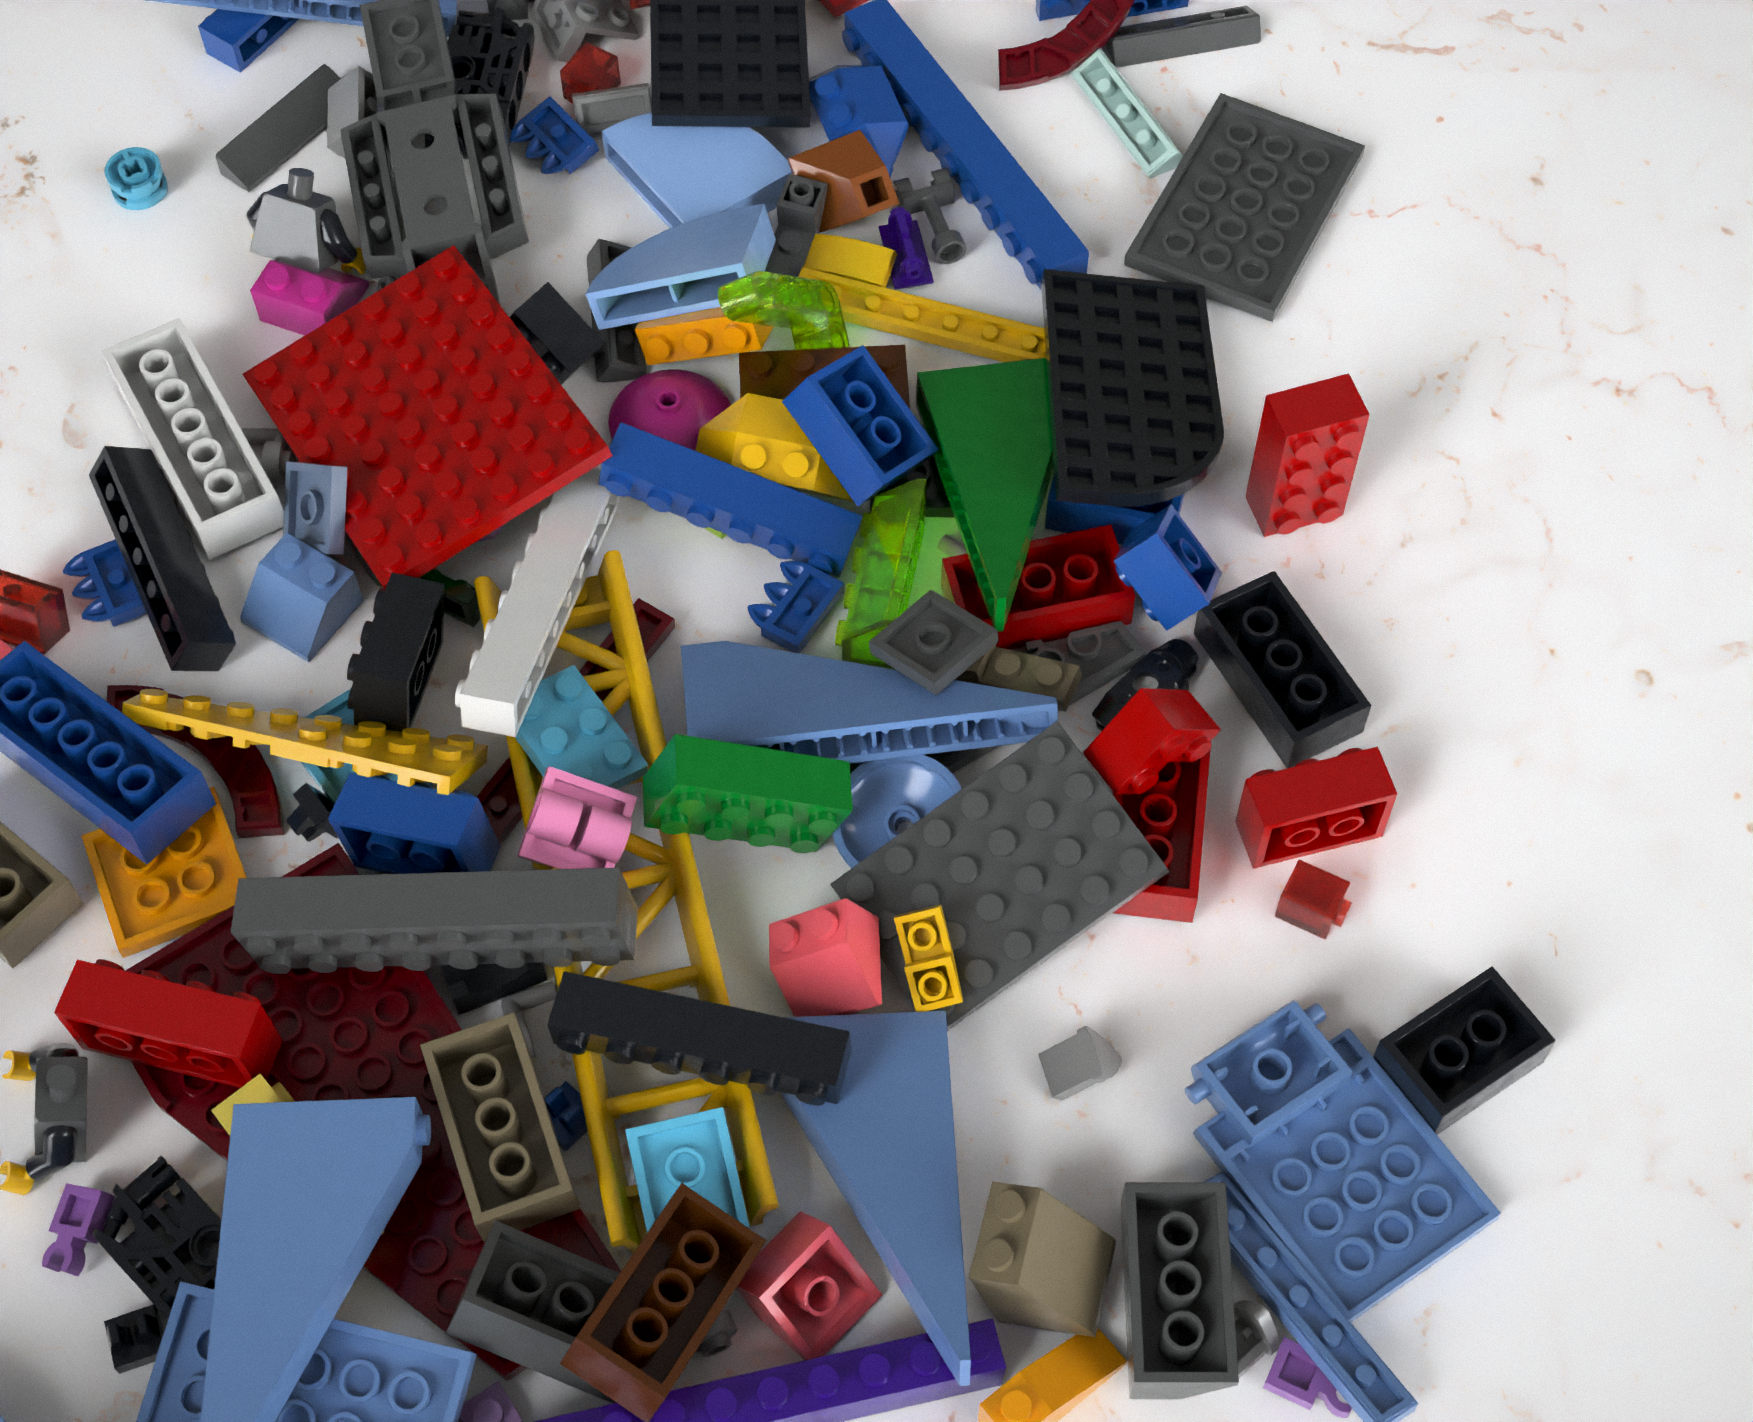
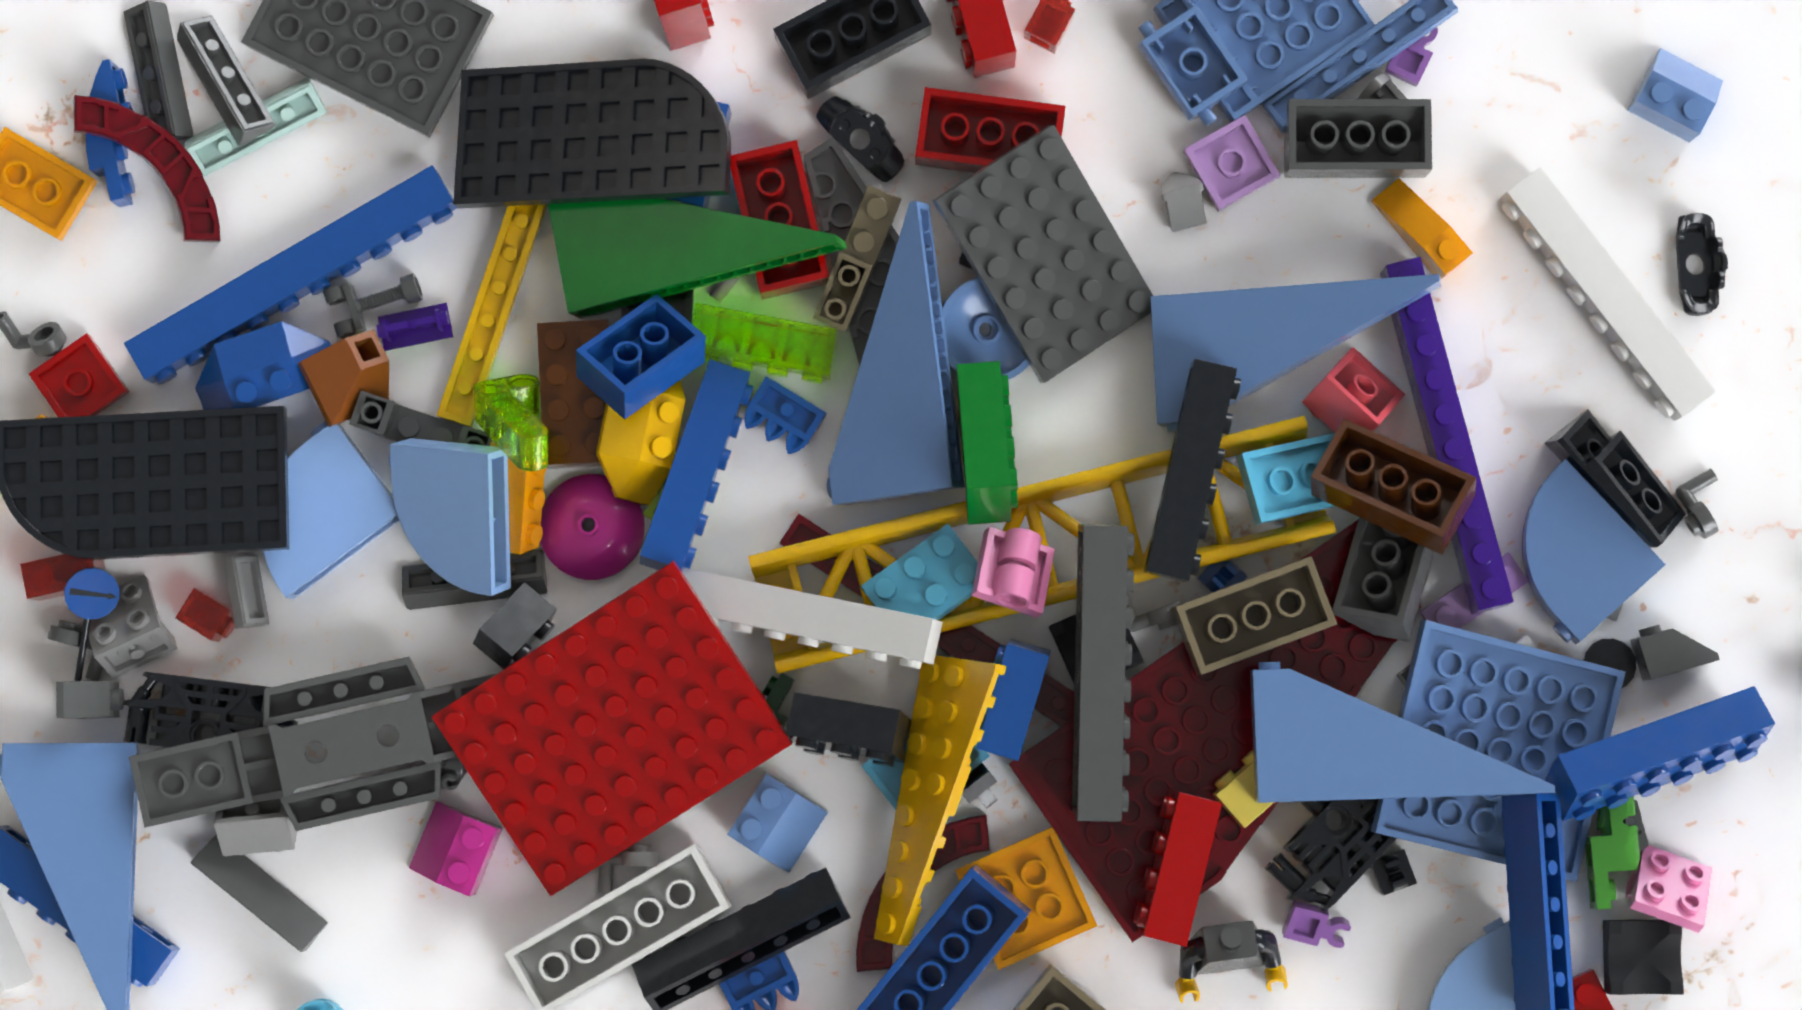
camera: 85 degrees left, 25 degrees up
(301, 227) = (403, 858): torso -> none
(316, 505) = (702, 812): sand blue tile -> none
(555, 136) = (278, 643): blue plate -> none
(827, 960) = (1112, 383): coral slope -> none
(851, 259) = (428, 374): yellow slope -> none
(928, 958) = (1112, 307): yellow slope -> none
(933, 642) = (855, 296): dark grey plate -> none
(1041, 1261) = (1346, 228): dark tan slope -> none
(1136, 1128) = (1231, 163): none -> lavender plate
(1148, 734) = (947, 129): red brick -> none
(1167, 568) = (772, 111): blue brick -> none
(1178, 80) = (224, 79): none -> dark grey slope

